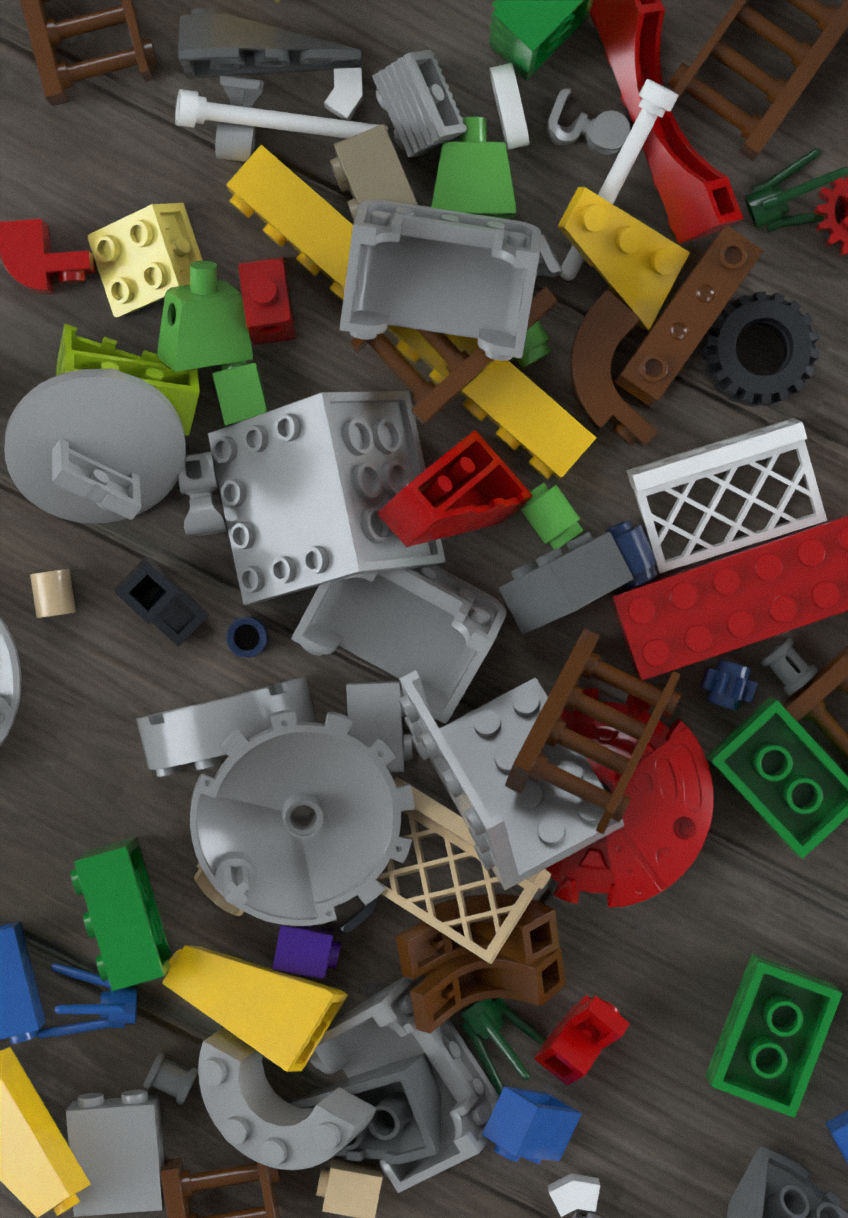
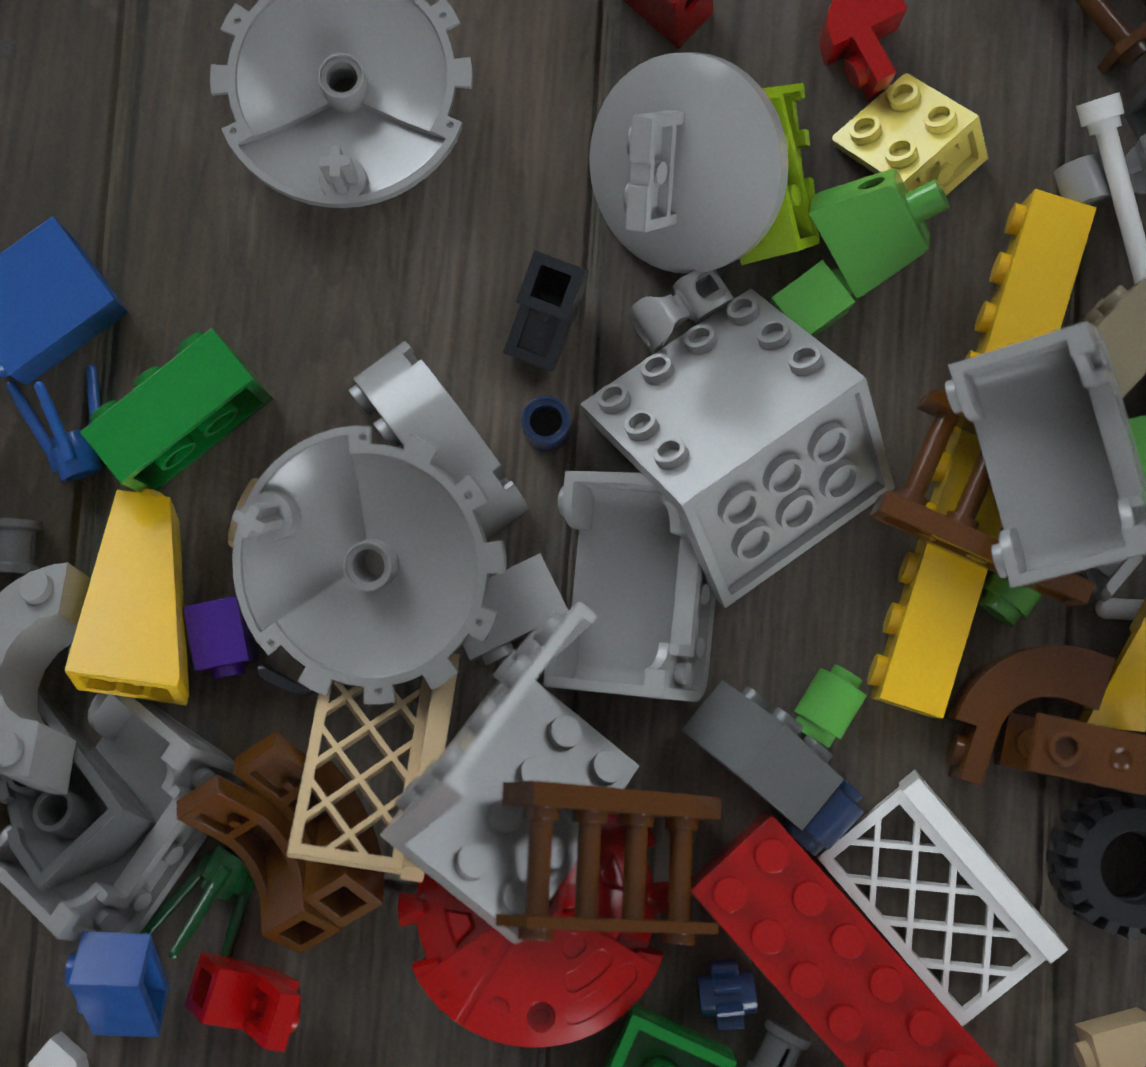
camera: 65 degrees right, 5 degrees down
(53, 593) = (503, 194): tan beam -> none
(267, 300) = (930, 285): red torso -> none
(456, 495) = (808, 583): red wedge -> none

